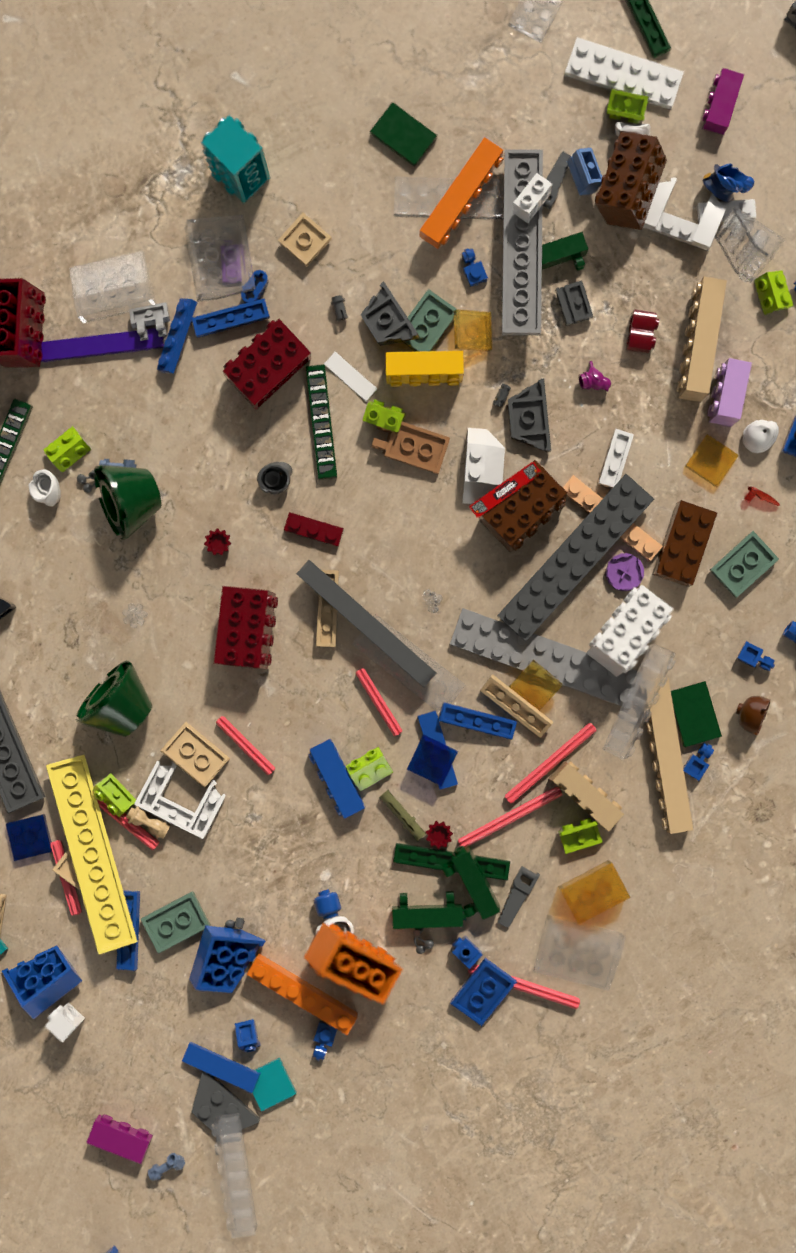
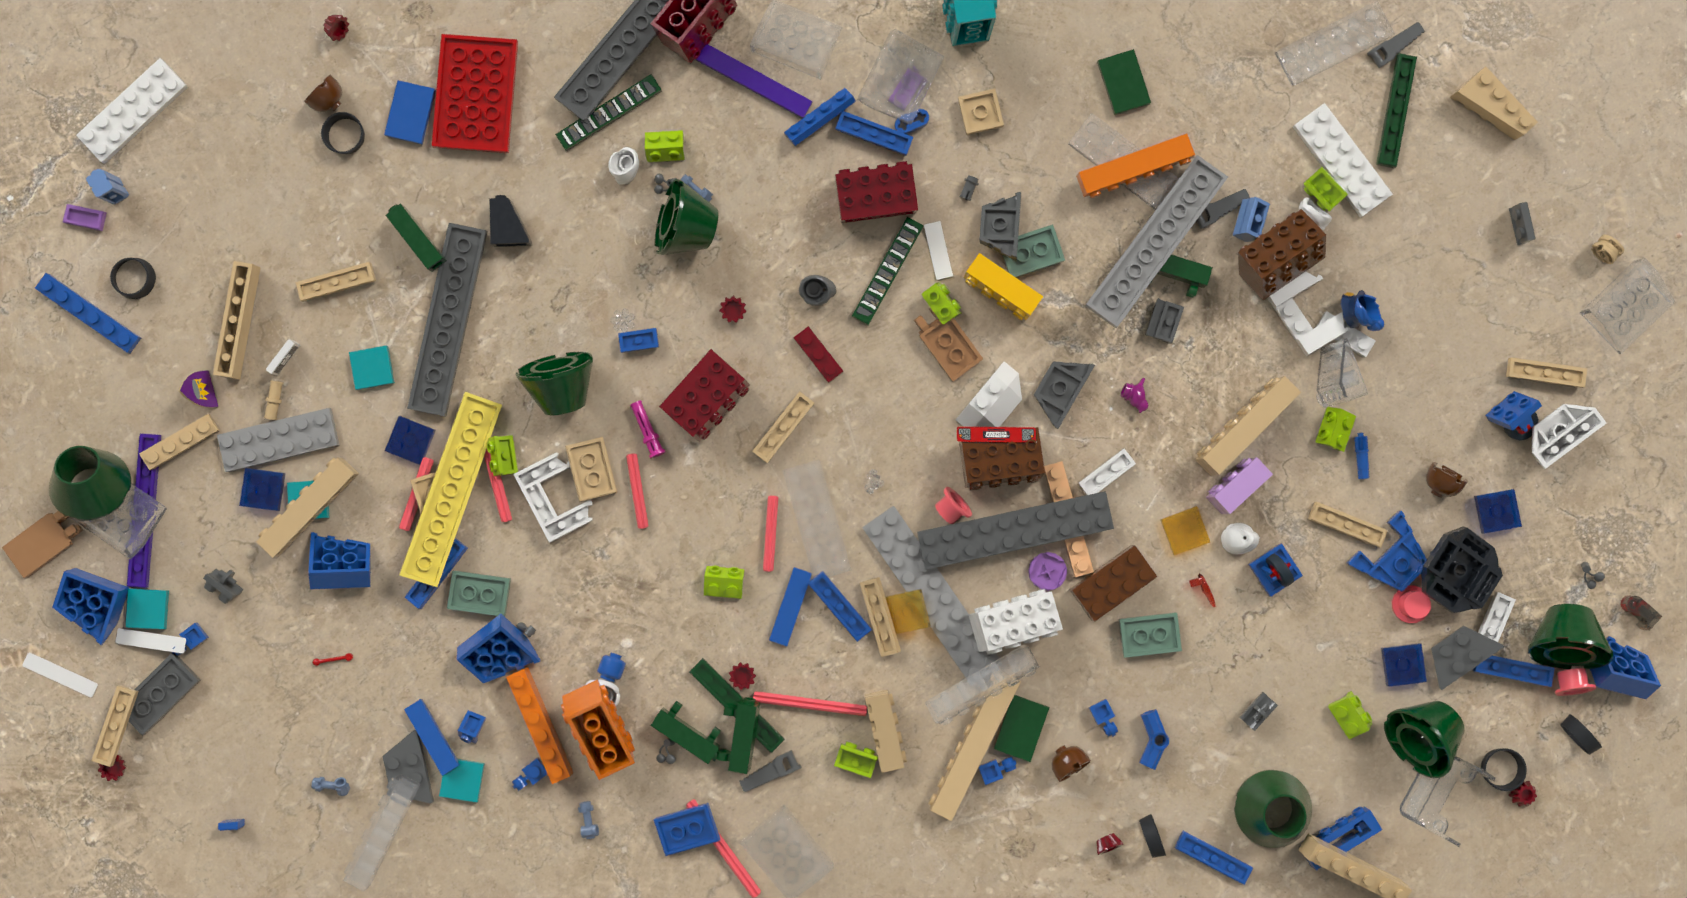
camera: 30 degrees right, 0 degrees up
(64, 1021) = (333, 609): white brick -> none
(105, 1051) = (349, 656): none -> red hinge
(119, 1138) = (310, 735): magenta brick -> none
(150, 315) = (808, 84): light grey plate -> none
(156, 826) = (518, 504): tan piece -> none
(158, 622) = (638, 340): none -> blue plate
(225, 694) = (650, 437): none -> dark pink pin
(337, 779) = (692, 571): blue brick -> none
(366, 623) = (805, 462): dark grey beam -> none
(404, 1050) = (588, 831): none -> sand blue bar
(405, 818) = (724, 639): olive pin -> none
(432, 760) = (780, 611): clear blue plate -> none
(464, 943) = (700, 794): blue brick -> none
(472, 330) = (1065, 284): clear yellow tile -> none
(474, 272) = (1101, 237): blue plate -> none
(501, 395) = (1050, 354): dark grey piece -> none
(511, 574) = (952, 506): none -> coral piece
(532, 198) = (1189, 211): white brick -> none
(550, 763) = (874, 683): coral axle -> none
(594, 892) = (834, 813): clear yellow brick -> none
(642, 331) = (1203, 383): dark red brick -> none
(722, 101) = (1407, 241): magenta brick -> none

